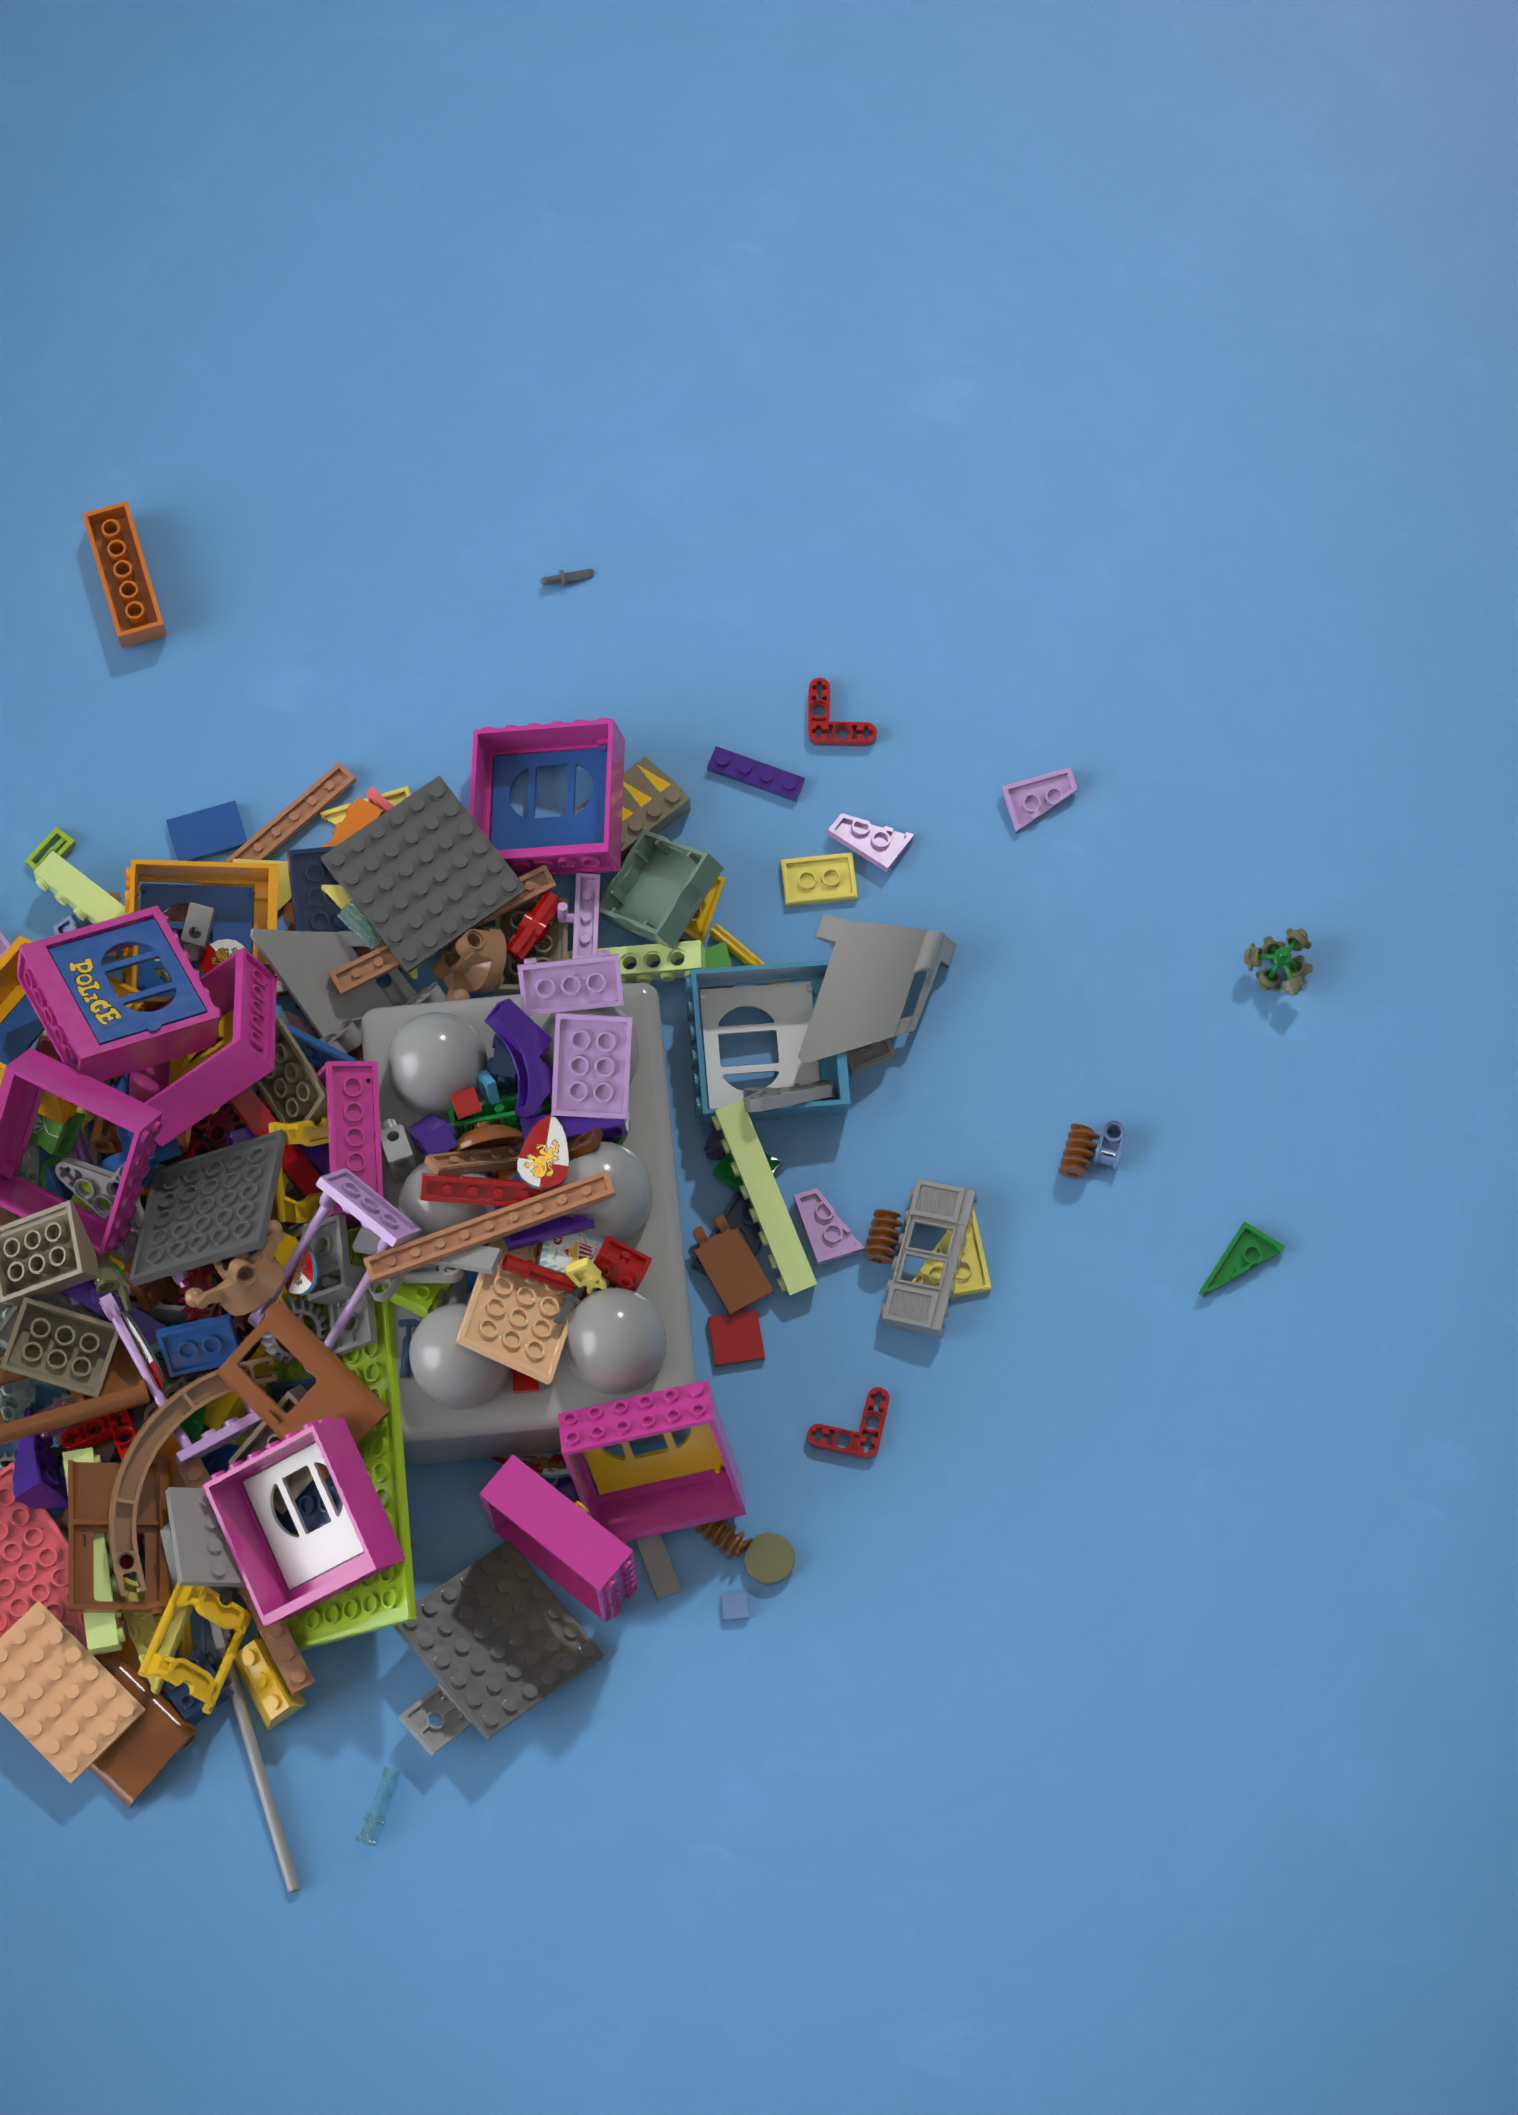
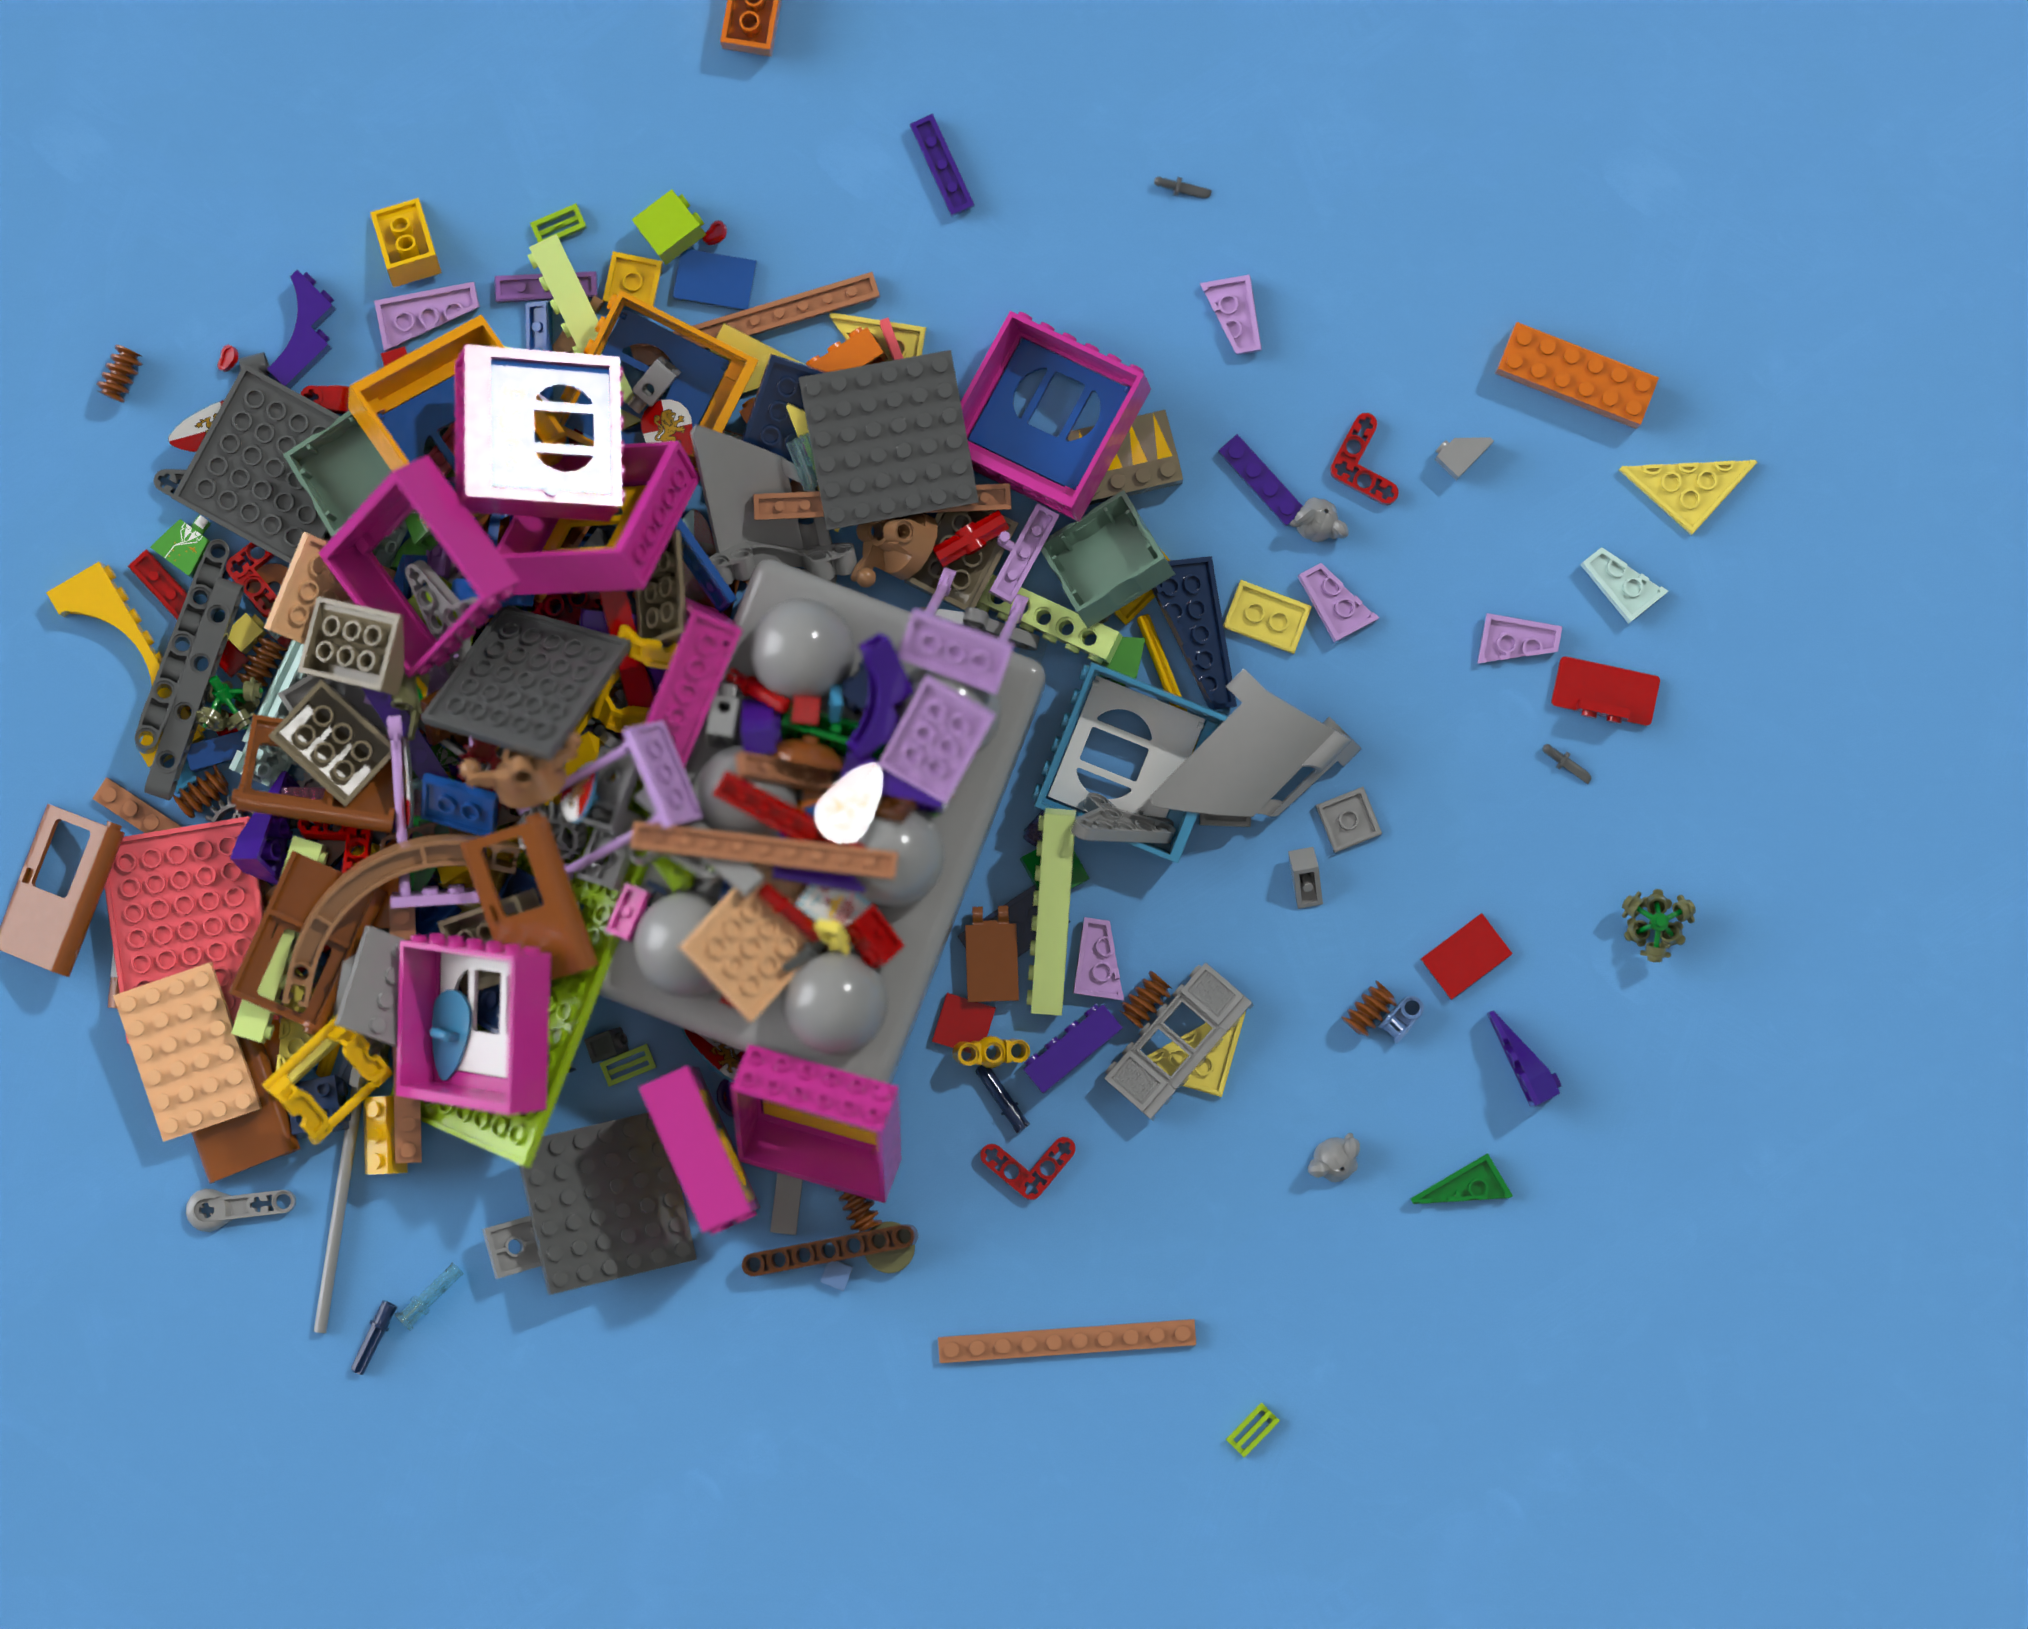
camera: 30 degrees right, 15 degrees up
(50, 913) = (528, 287): none -> medium lavender tile
(122, 855) = (634, 276): none -> yellow plate
(147, 805) = (669, 226): none -> lime brick
(160, 1819) = (230, 1207): none -> light grey beam
(189, 795) = (716, 233): none -> red piece
(285, 1549) = (450, 1031): none -> dark azure shield
(346, 1858) = (378, 1327): none -> dark blue axle
(355, 652) = (942, 165): none -> dark purple plate
(395, 1352) = (628, 912): none -> dark pink plate
(410, 1112) = (750, 686): none -> red axle
(430, 1508) = (607, 1044): none -> dark grey bracket
(444, 1534) = (648, 1056): none -> lime tile
(663, 651) = (1235, 308): none -> lavender wing
(705, 1585) = (818, 1255): none -> reddish brown beam
(758, 905) = (1196, 621): none -> dark blue wing
(781, 1339) = (1003, 1052): none -> yellow piece
(812, 1387) = (1002, 1098): none -> dark blue axle
(822, 781) = (1318, 525): none -> light grey hair
(841, 1306) = (1073, 1048): none -> dark purple brick
(911, 673) = (1461, 454): none -> light grey slope
(965, 1071) = (1305, 877): none -> light grey slope
(967, 1563) = (1067, 1341): none -> nougat plate
(973, 567) = (1577, 375): none -> orange brick
(976, 1009) = (1348, 819): none -> light grey tile
(1101, 713) = (1624, 587): none -> light aqua wing
(1113, 615) = (1688, 489): none -> light yellow tile
(1113, 1289) = (1333, 1155): none -> light grey hair
(1134, 802) = (1605, 691): none -> red bracket
(1134, 875) = (1567, 763): none -> dark grey piece
(1136, 1071) = (1466, 956): none -> red tile
(1176, 1537) = (1260, 1436): none -> lime tile
(1241, 1136) = (1530, 1071): none -> dark purple wedge

